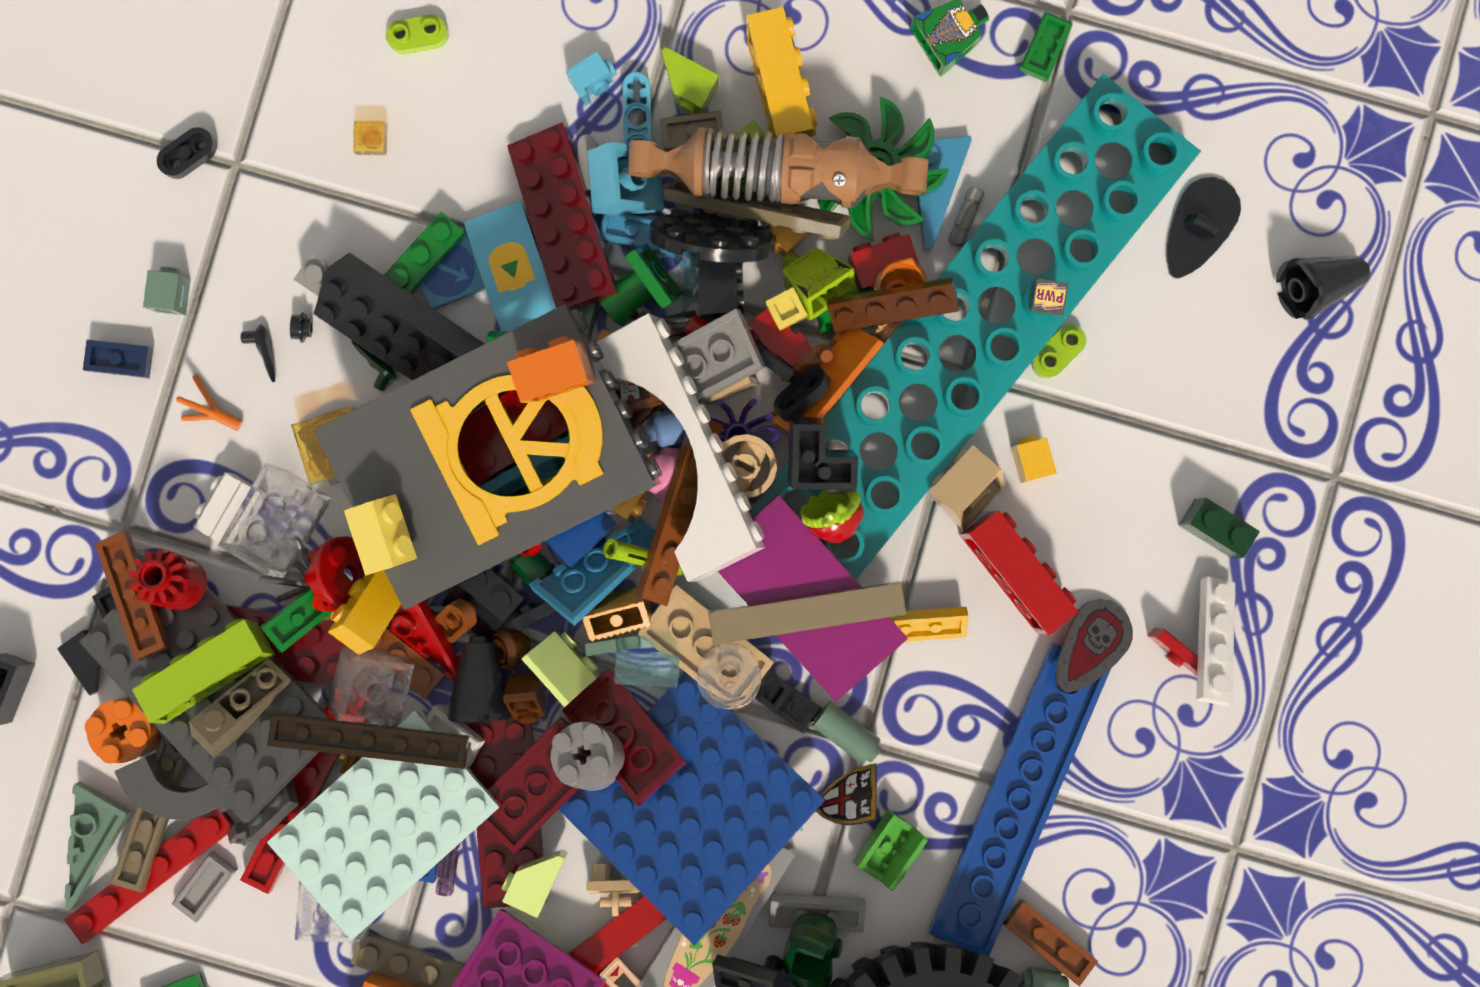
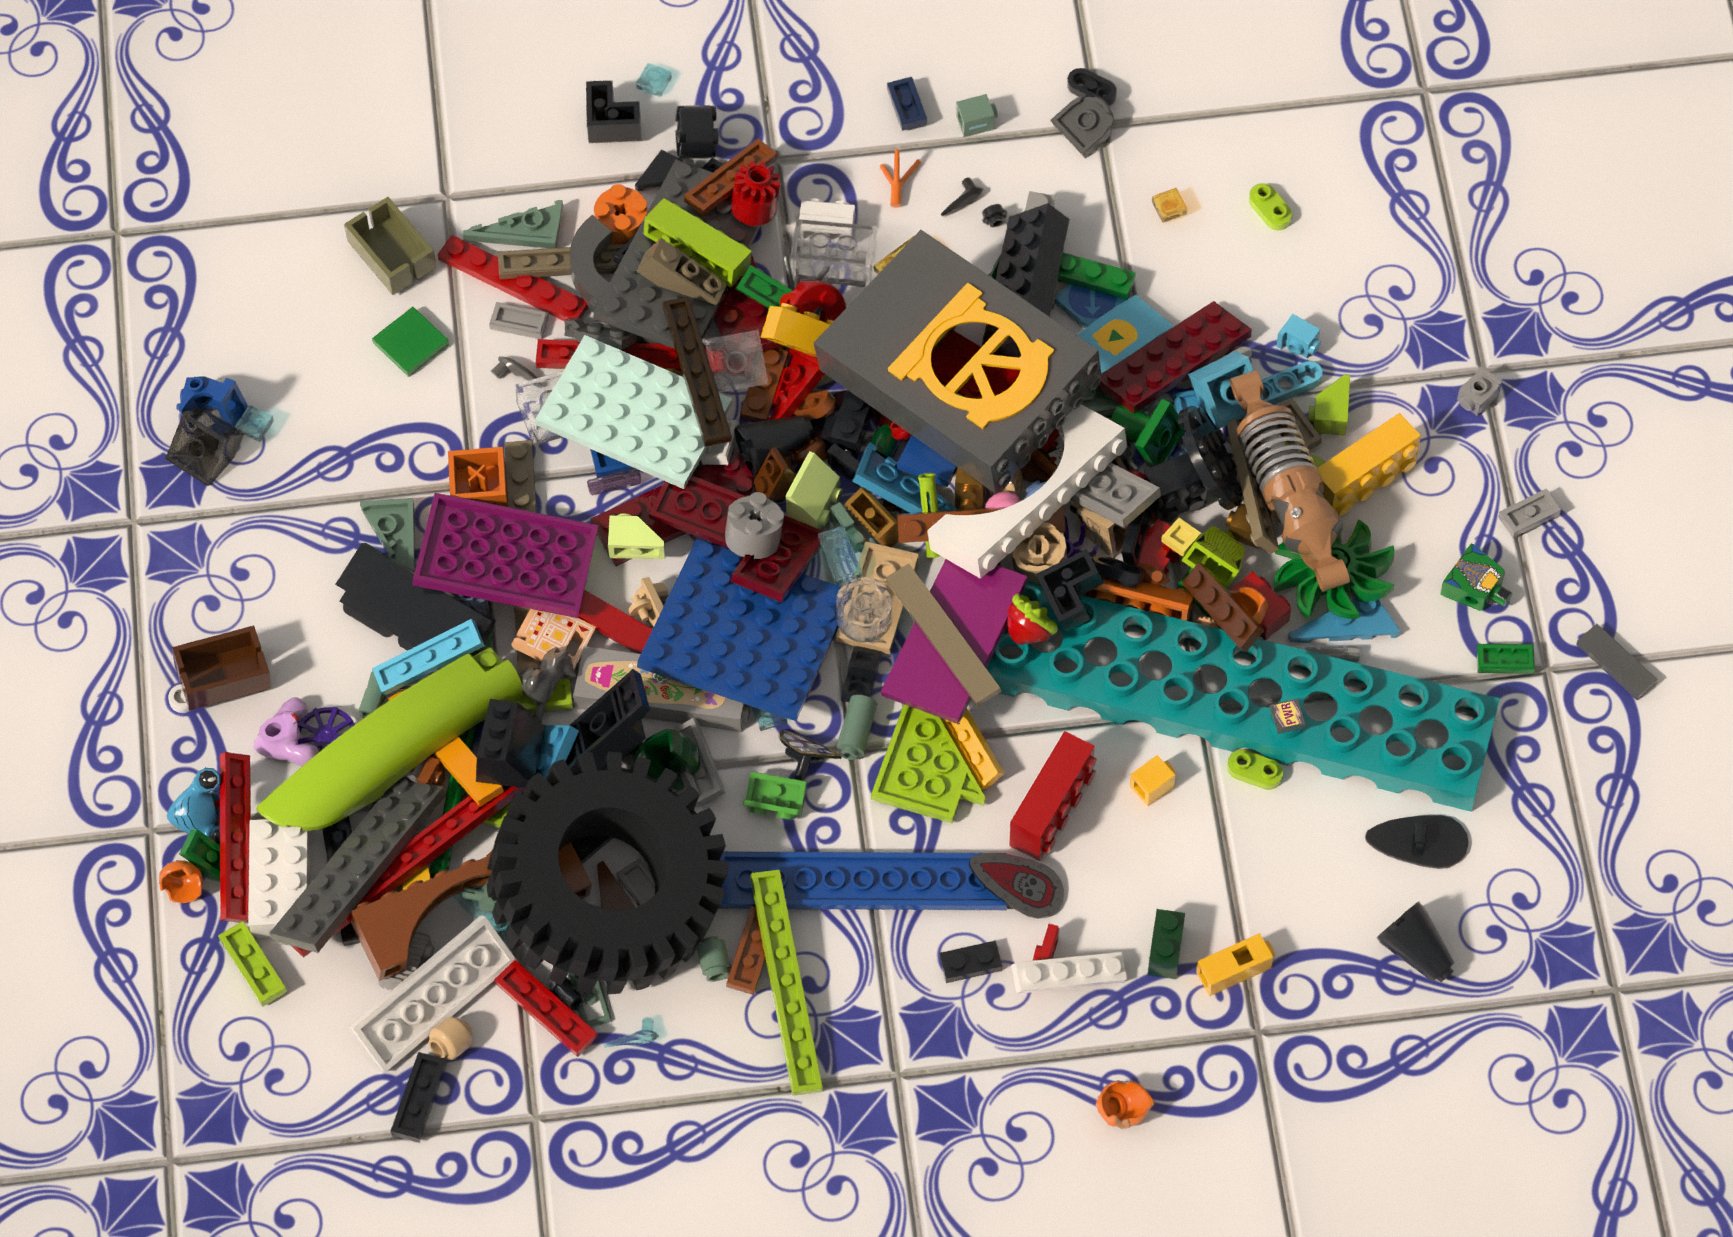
camera: 70 degrees right, 25 degrees down
(53, 605) = (696, 131): none -> black brick
(229, 180) = (1085, 123): none -> dark grey tile
(254, 921) = (516, 368): none -> dark grey bar
(380, 534) = (865, 297): light yellow brick -> none
(551, 371) = (1042, 351): orange brick -> none
(927, 685) = (924, 769): none -> lime wing
(968, 486) = (1109, 730): tan slope -> none
(1105, 927) = (786, 983): none -> lime plate
(1148, 727) = (970, 961): none -> black plate
(1266, 468) = (1235, 964): none -> yellow brick
(1373, 647) = (1124, 1103): none -> orange hair

